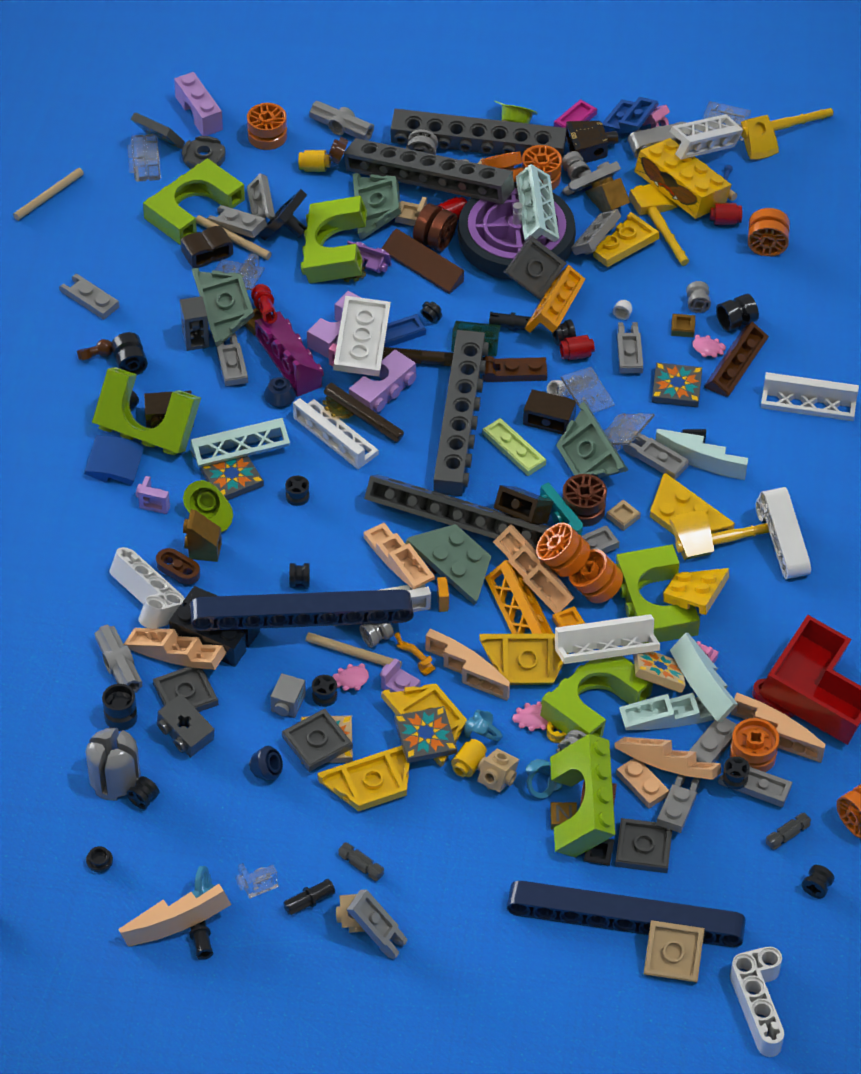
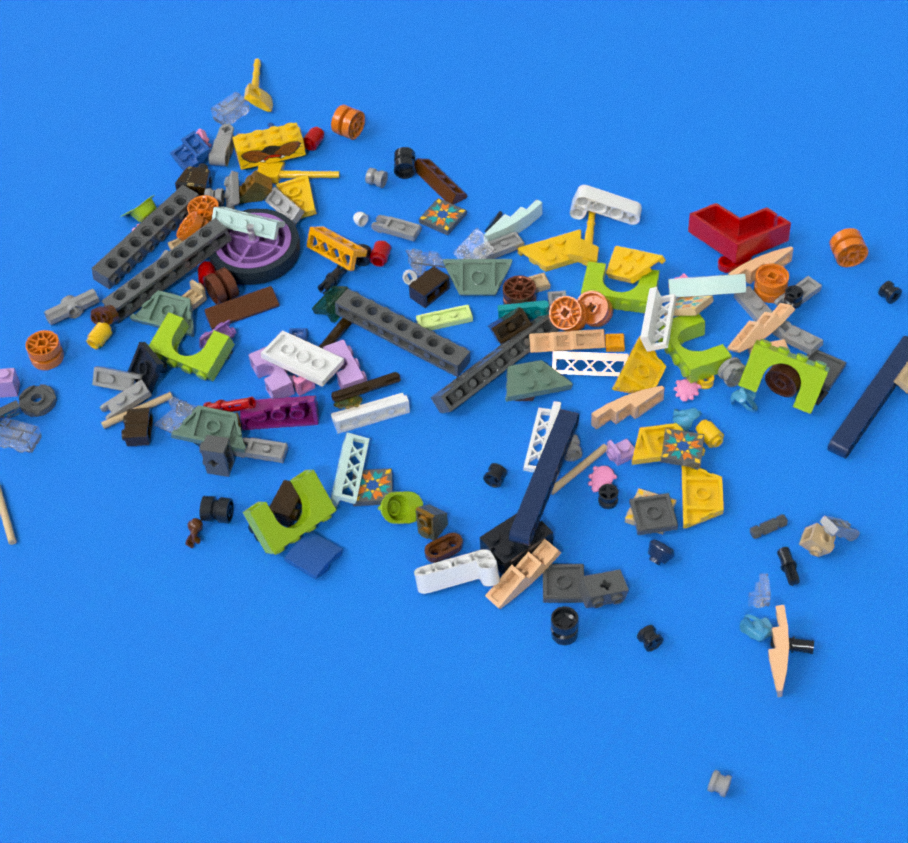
camera: 60 degrees left, 0 degrees up
(90, 297) = (133, 519): light grey hinge -> none
(99, 859) = (697, 688): black plate -> none
(112, 763) = (622, 644): light grey cylinder -> none
(117, 657) = (514, 614): light grey piece -> none
(152, 498) = (368, 543): lavender bracket -> none
(202, 180) = (83, 441): lime arch -> none
(280, 392) = (312, 431): dark blue cone -> none
(288, 695) = (603, 519): light grey brick -> none
(297, 490) = (416, 447): black wheel -> none
(398, 556) = (511, 412): light nougat slope -> none
(422, 143) = (134, 267): light grey wheel -> none
(425, 664) = (612, 430): light orange piece -> none
(431, 311) = (294, 318): black plate -> none
(442, 594) = (558, 396): light orange tile -> none
(498, 770) = (730, 419): tan brick -> none
(515, 369) = (379, 288): reddish brown plate -> none
(535, 267) = (300, 245): dark grey tile -> none
(561, 812) = (778, 401): pearl gold tile -> none
(578, 112) = (164, 182): dark pink tile -> none
(664, 713) = (719, 318): light aqua slope -> none
(683, 325) = (392, 195): pearl gold tile -> none
(708, 346) = (419, 189): bright pink piece -> none
(709, 139) = (249, 114): white fence -> none
(788, 831) = (841, 293): dark grey axle -> none
(809, 392) = (491, 155): white fence -> none

